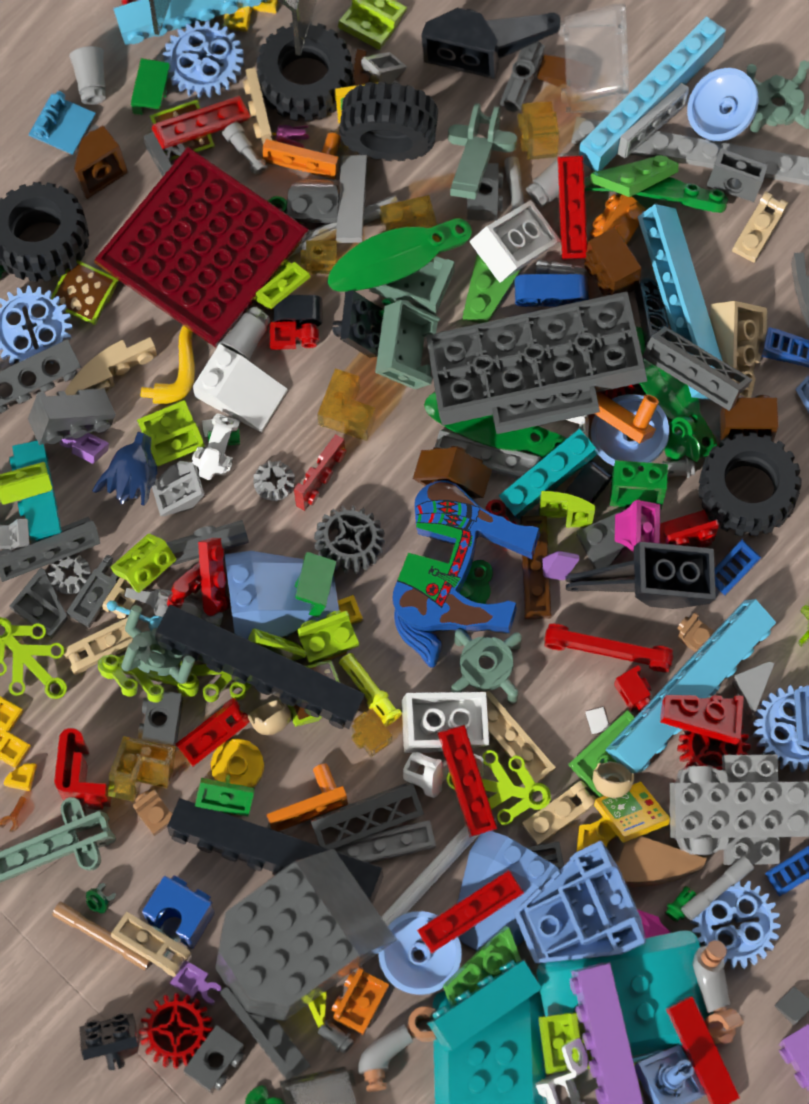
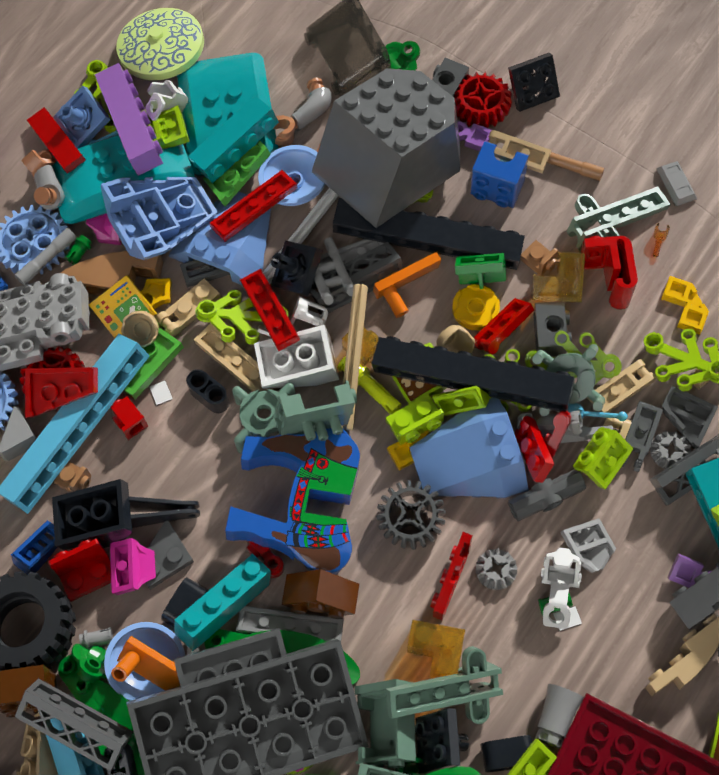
camera: 175 degrees right, 5 degrees down
(21, 777) = (661, 270): yellow tile -> none
(97, 900) = (570, 182): dark green plate -> none
(130, 471) = (640, 545): dark blue piece -> none
(171, 433) = (609, 602): lime slope -> none
(186, 373) = (609, 653): yellow animal -> none
(239, 388) = (550, 655): white slope -> none
(285, 335) = (514, 723): red plate -> none
(314, 374) = (450, 690): none -> sand green piece
(315, 582) = (435, 456): green panel -> none
(382, 708) = (355, 342): none -> tan axle
(386, 828) = (342, 278): none -> light grey piece
(431, 638) = (295, 419): none -> sand green piece
(437, 827) = (291, 267): none -> black plate
(478, 587) = (280, 491): green plate -> none
(535, 586) = (225, 495): reddish brown tile -> none
(543, 707) = (207, 391): none -> black beam
(559, 564) = (207, 522): medium lavender slope -> none
(559, 637) = (107, 448): red piece -> none
(562, 505) = (194, 569): lime slope -> none
(631, 484) = (123, 599): green window -> none

